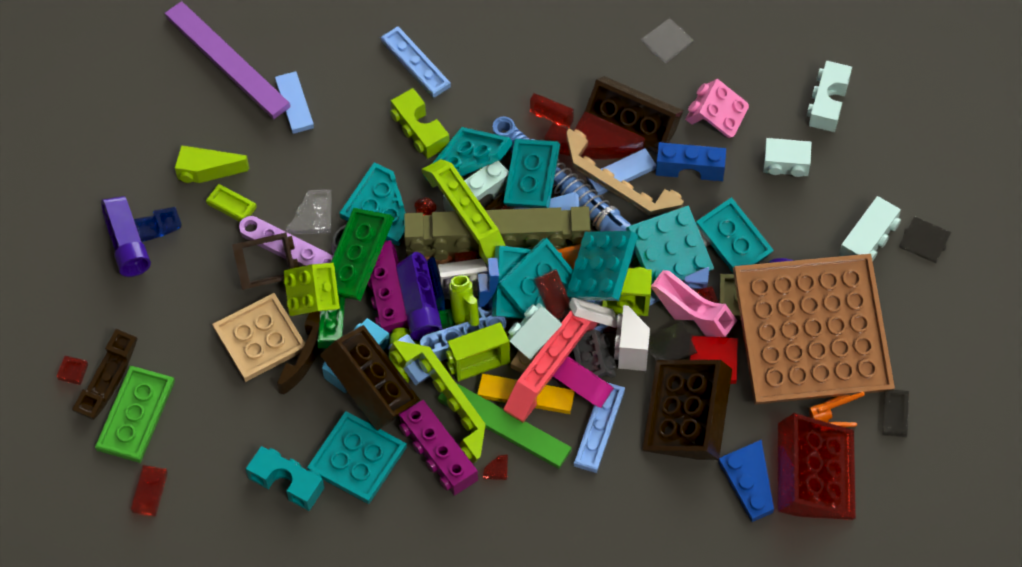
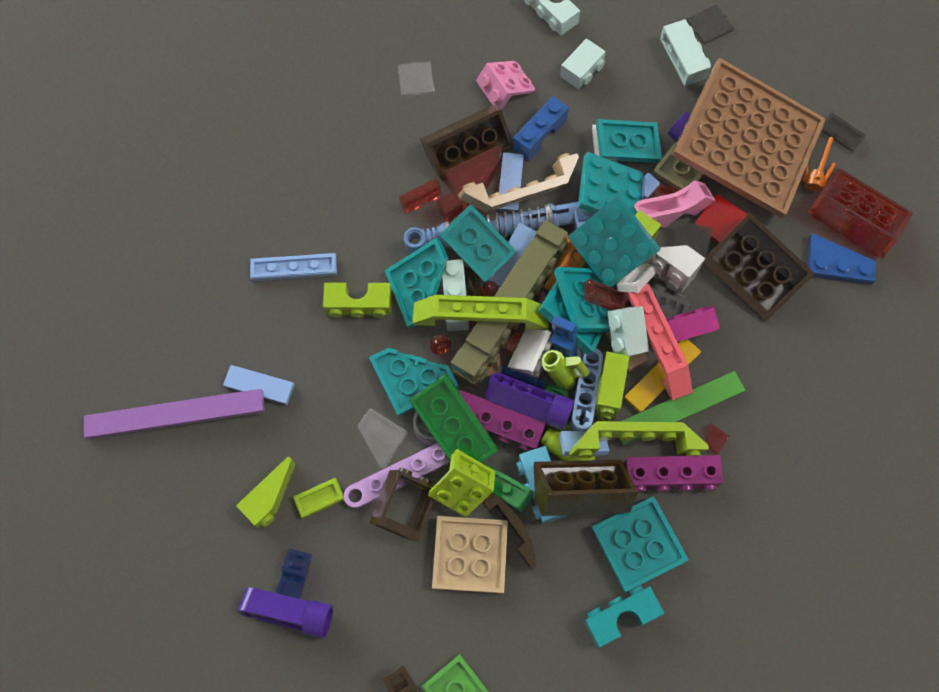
camera: 55 degrees left, 10 degrees up
(598, 431) = (733, 346): light blue tile -> none

